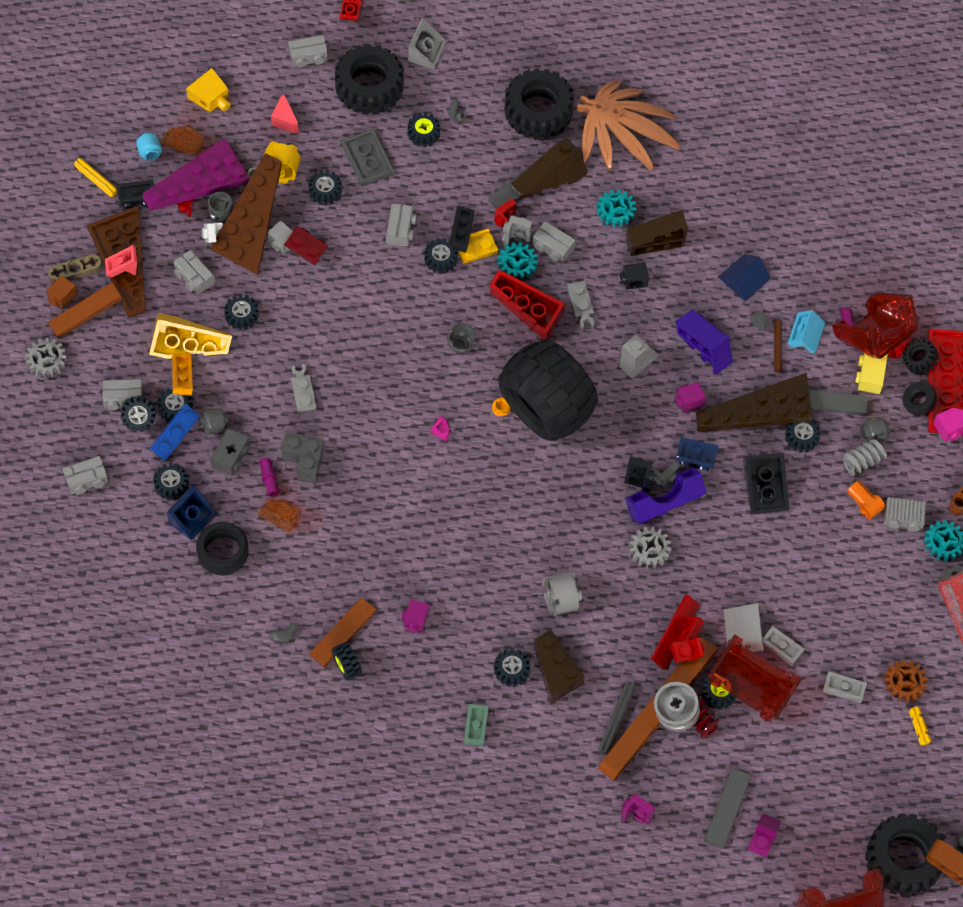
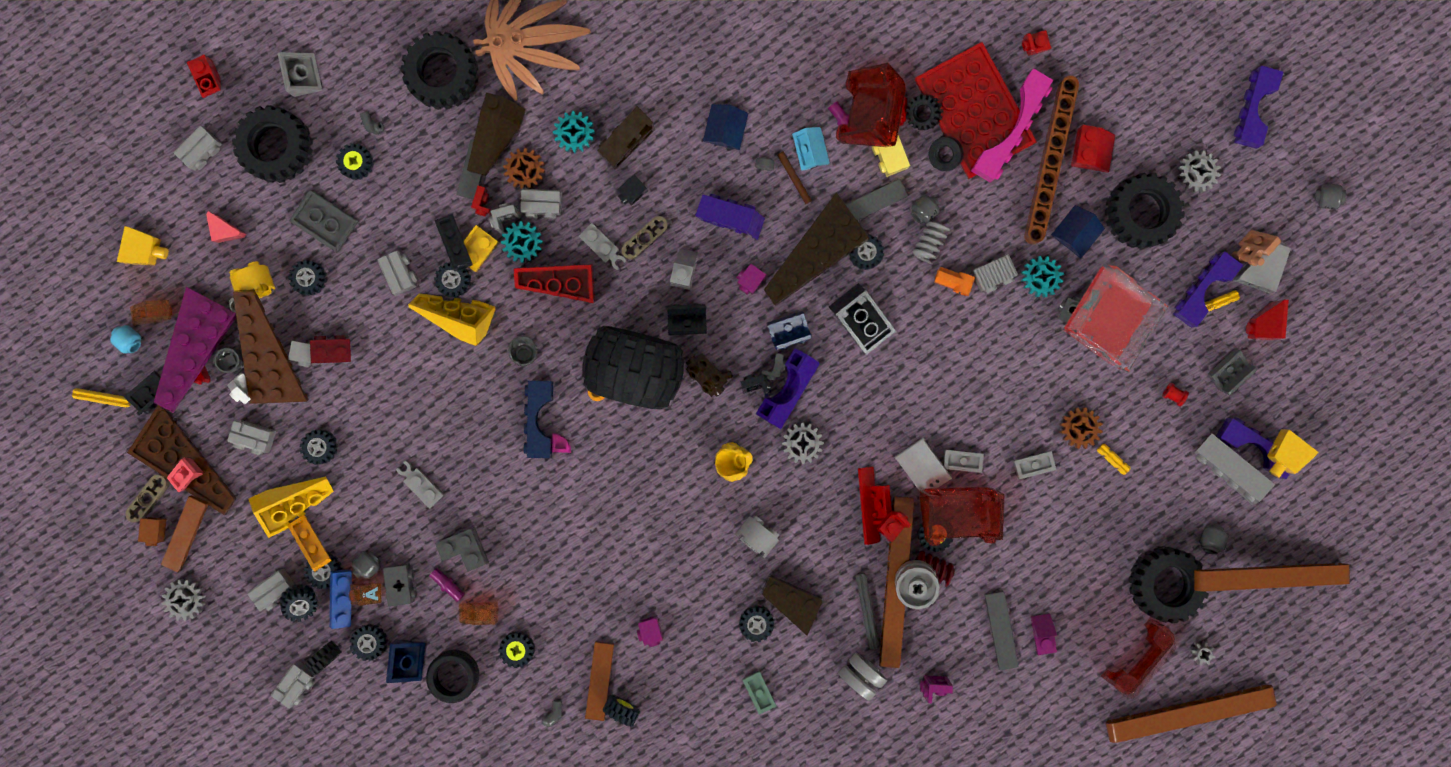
camera: 30 degrees left, 25 degrees up
(126, 466) = (323, 658): none -> black tyre
(198, 440) = (365, 593): none -> clear orange brick
(287, 568) = (518, 642): none -> black wheel
(427, 291) = (461, 320): none -> yellow wedge
(450, 380) = (537, 444): none -> dark blue arch
(563, 216) = (531, 167): none -> dark orange gear
(578, 760) = (862, 676): none -> light grey wheel
(580, 523) = (732, 461): none -> yellow hair
(603, 446) = (707, 375): none -> dark brown brick
(606, 314) = (630, 243): none -> dark tan beam
(616, 395) = (687, 319): none -> black bracket

